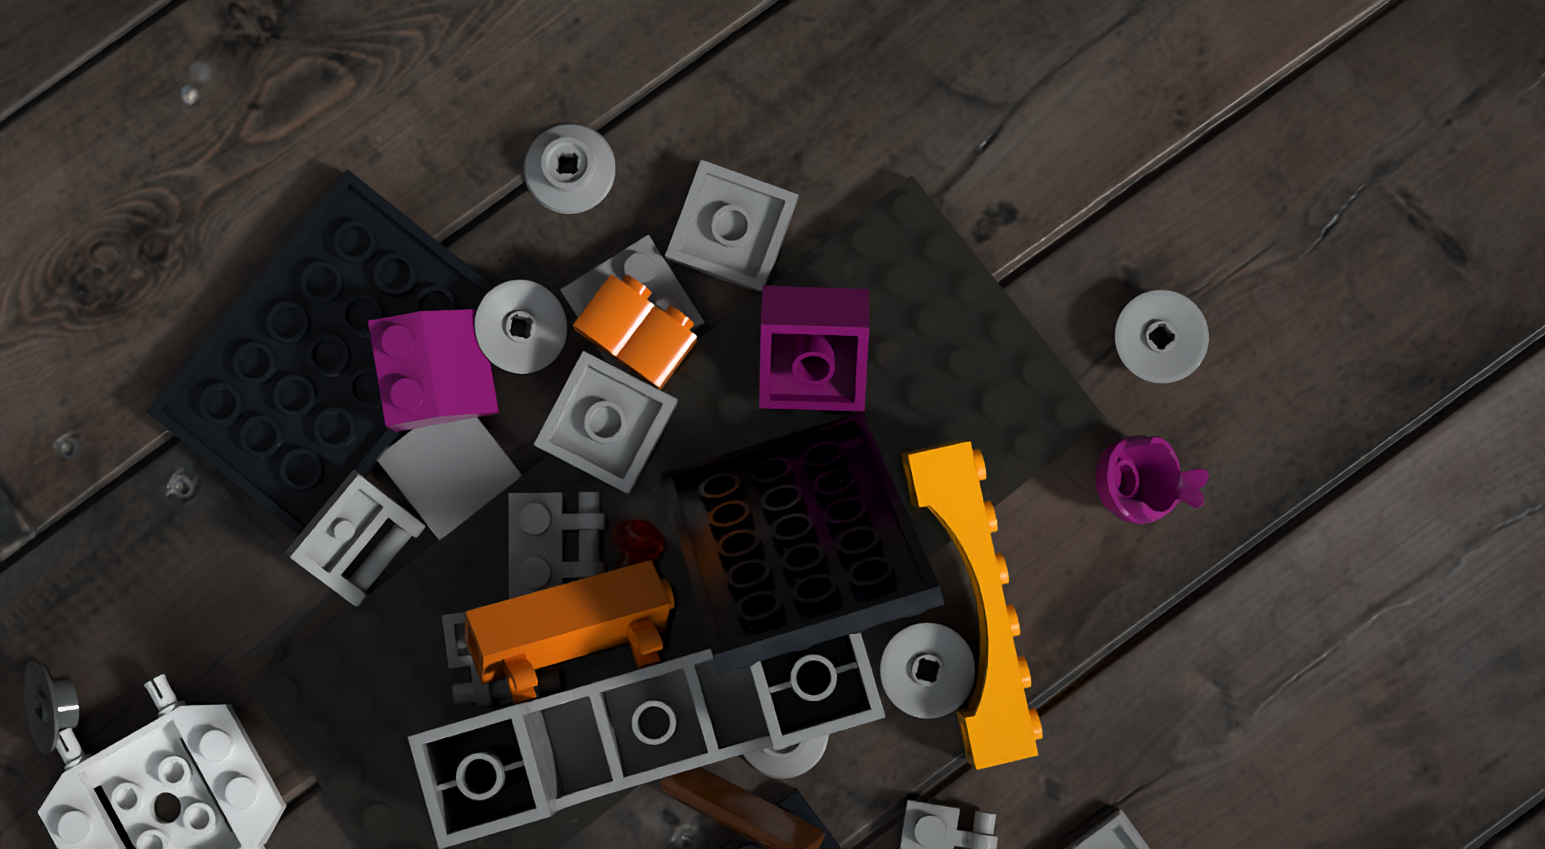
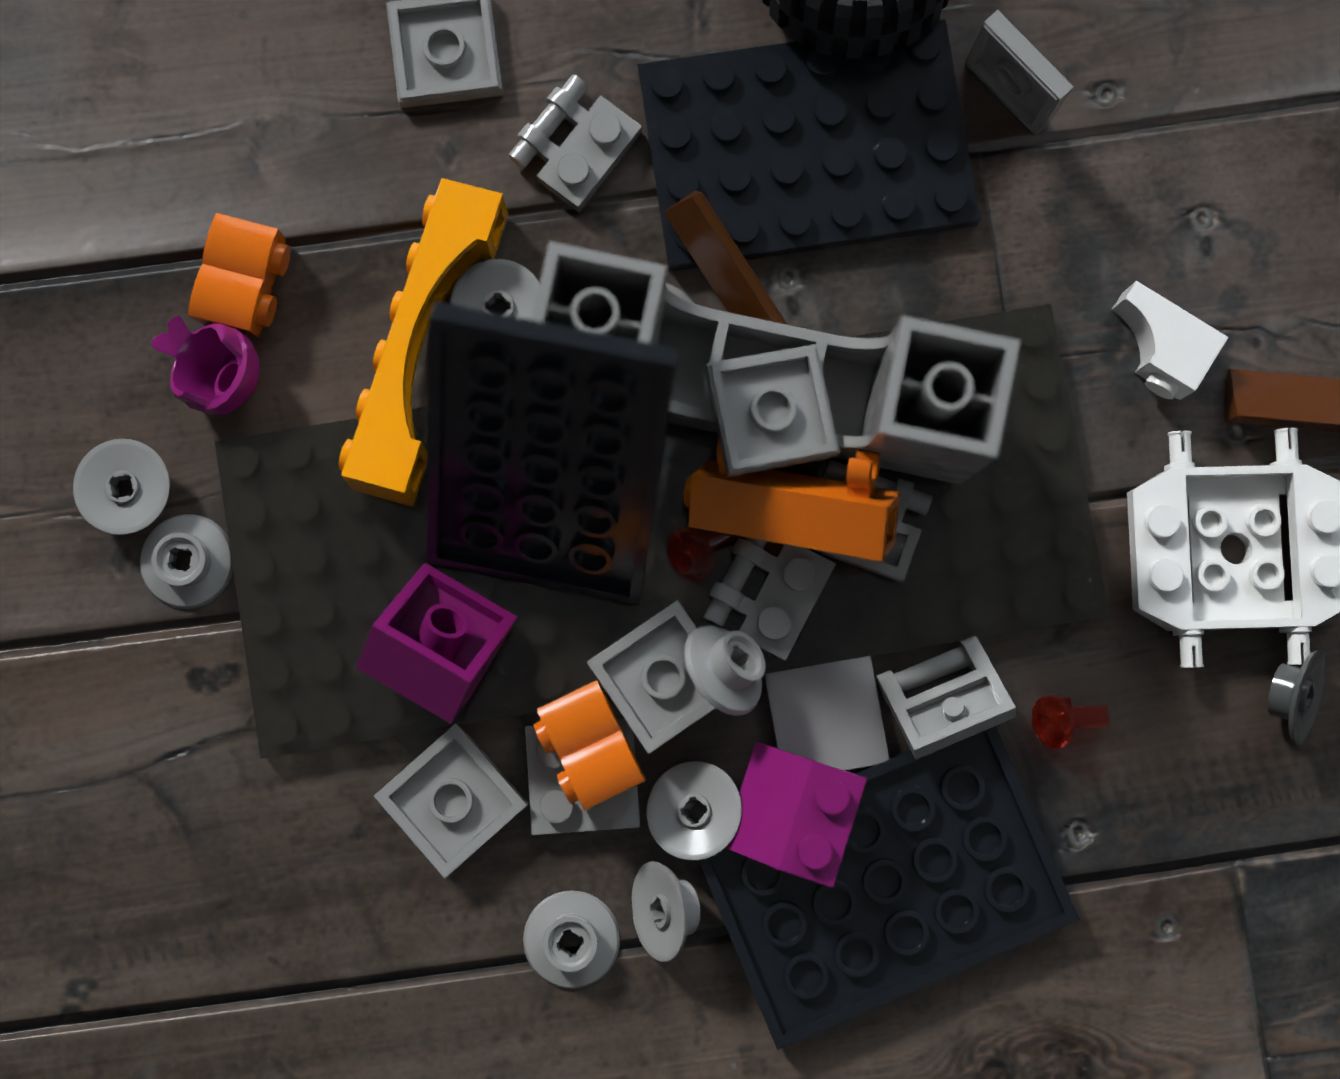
camera: 155 degrees left, 0 degrees up
(246, 576) = (1062, 718): none -> clear red plate
(502, 230) = (663, 910): none -> light grey piece
(555, 456) = (725, 668): none -> light grey piece
(628, 692) = (771, 410): none -> light grey tile
(1050, 313) = (209, 564): none -> light grey piece
(1168, 573) = (239, 275): none -> orange brick

